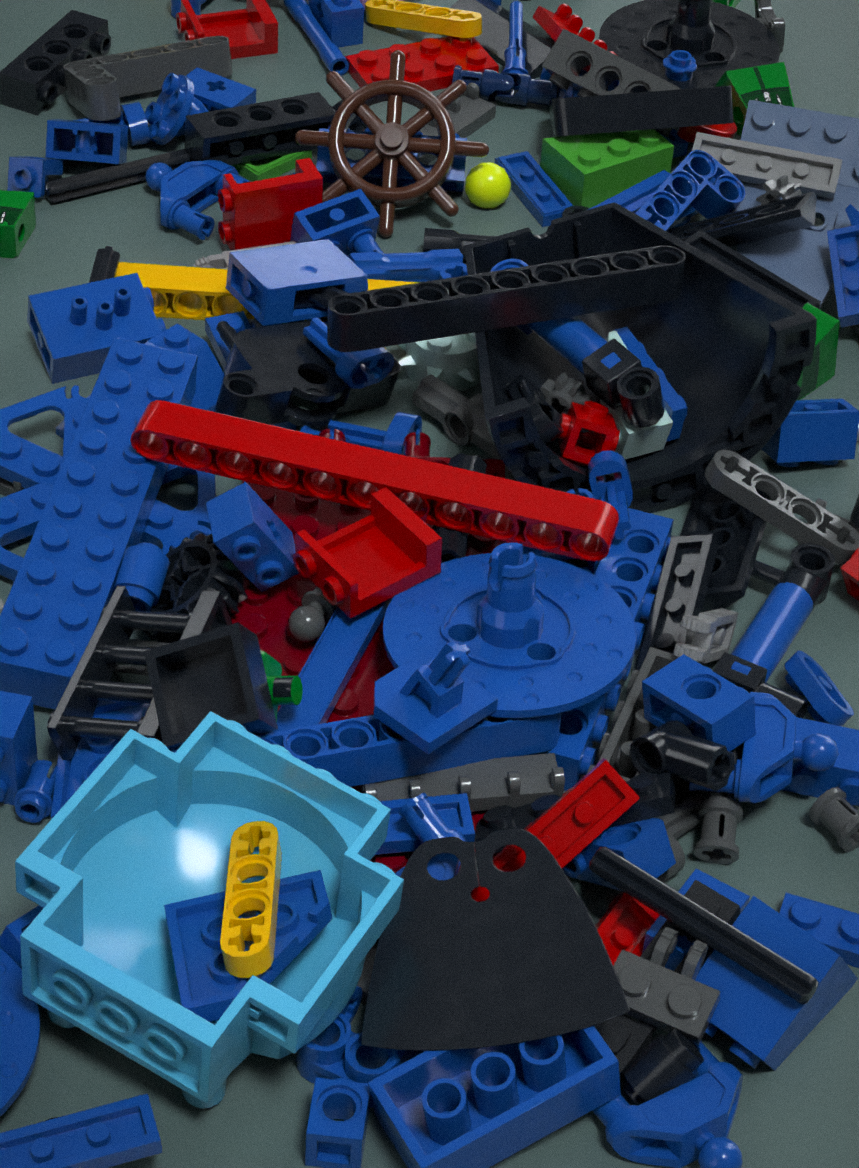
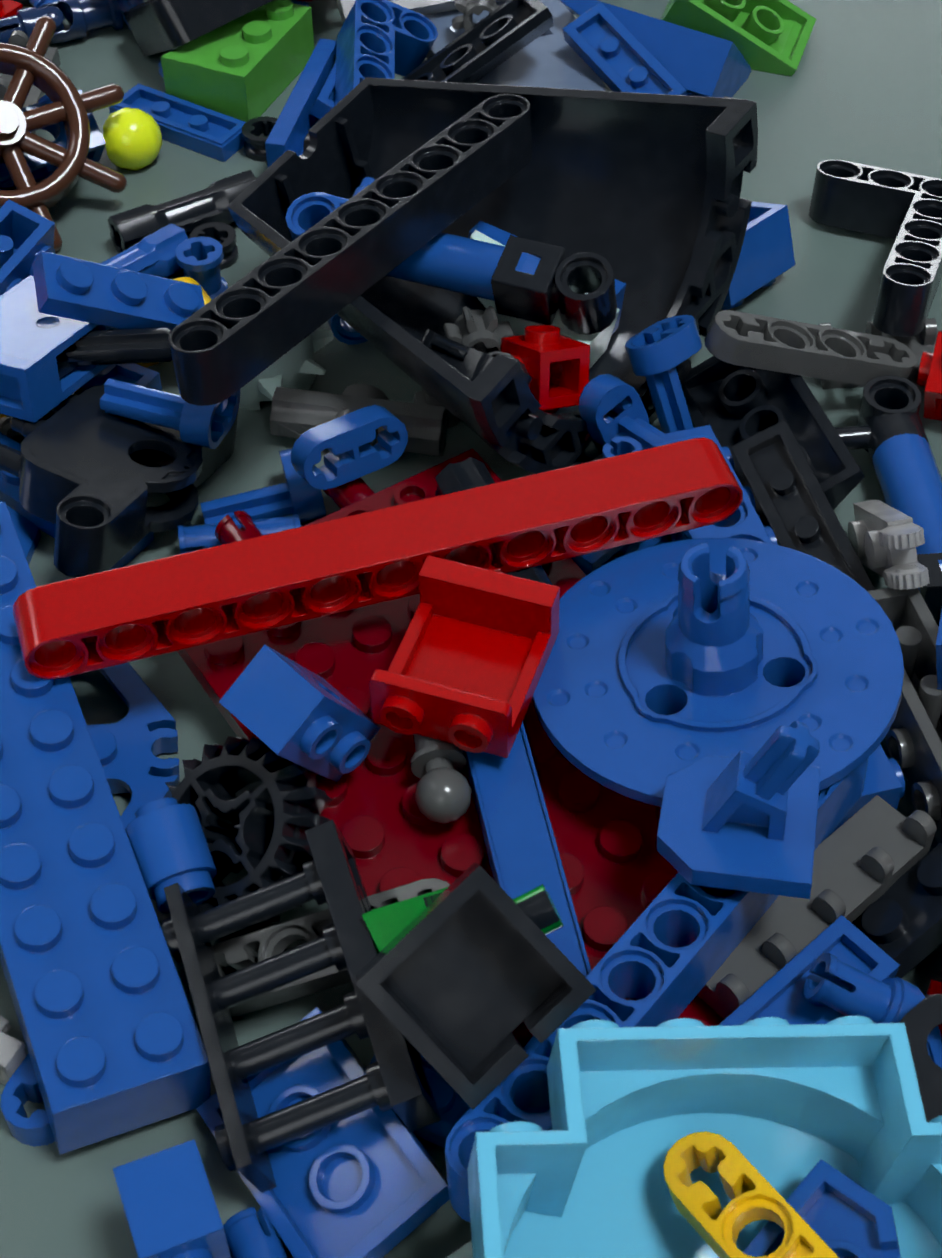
camera: 30 degrees left, 5 degrees up
(348, 263) = (111, 294): none -> blue plate
(424, 421) = (349, 446): none -> blue beam
(667, 460) = (655, 355): none -> blue piece

